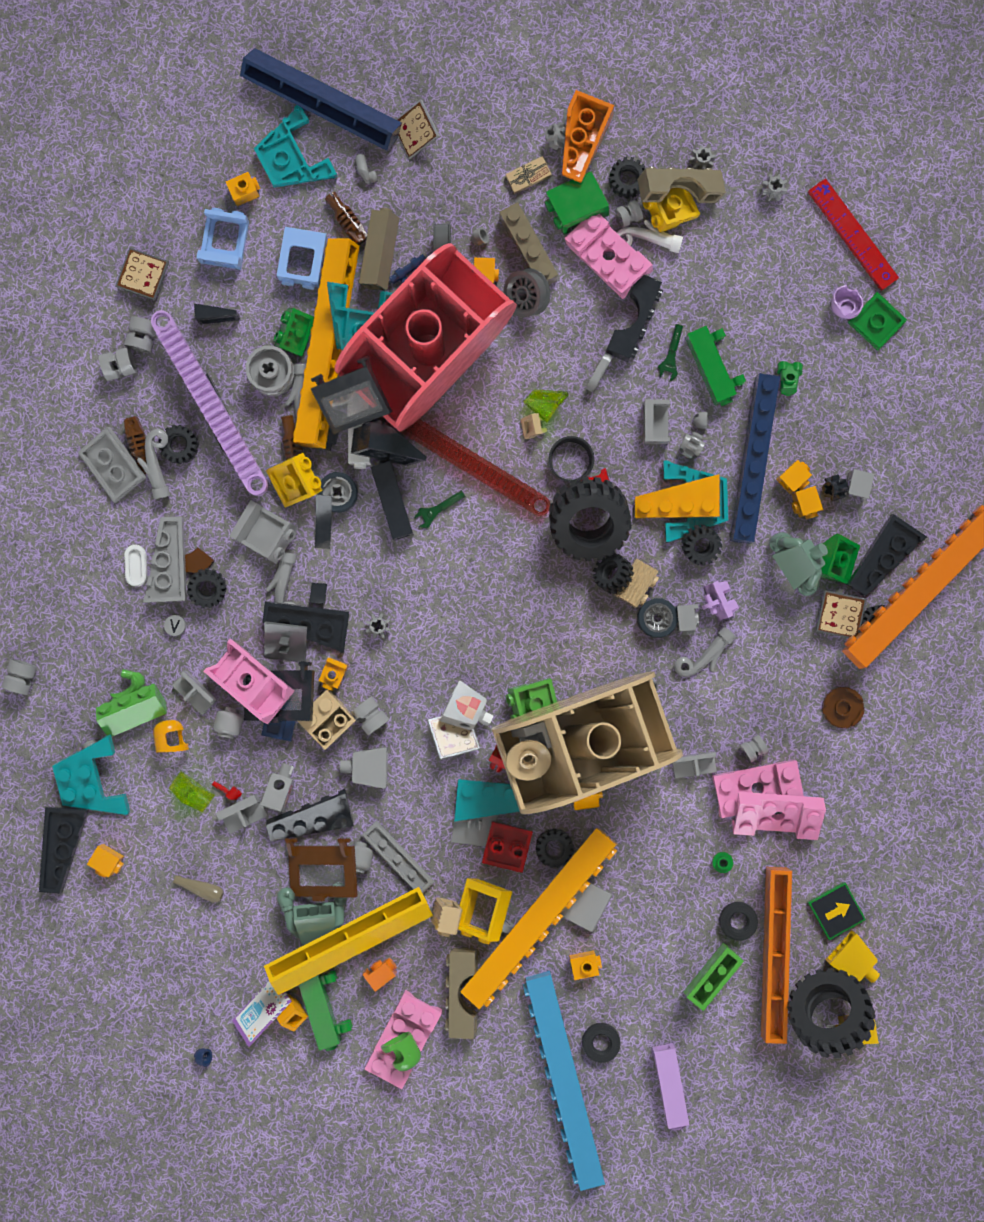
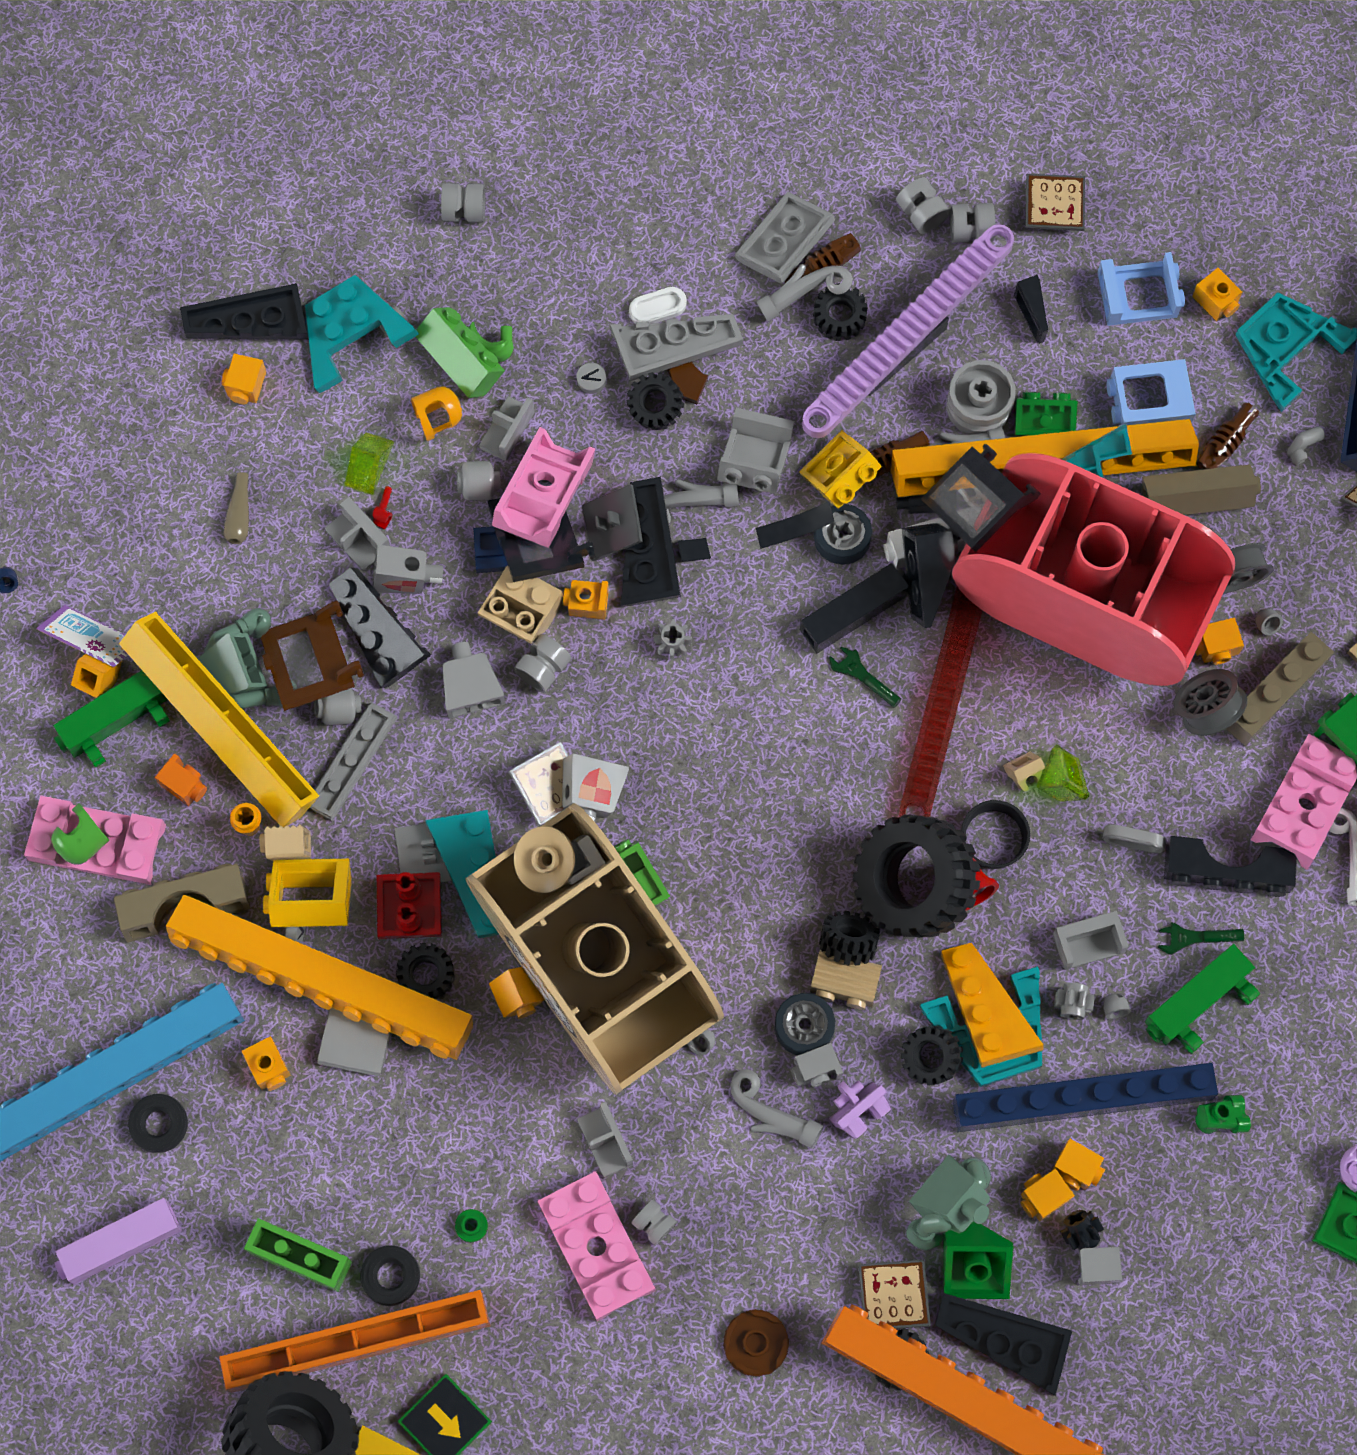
camera: 75 degrees right, 15 degrees down
(421, 944) = (243, 813): none -> light orange cone
(798, 814) = (559, 1249): bright pink piece -> none

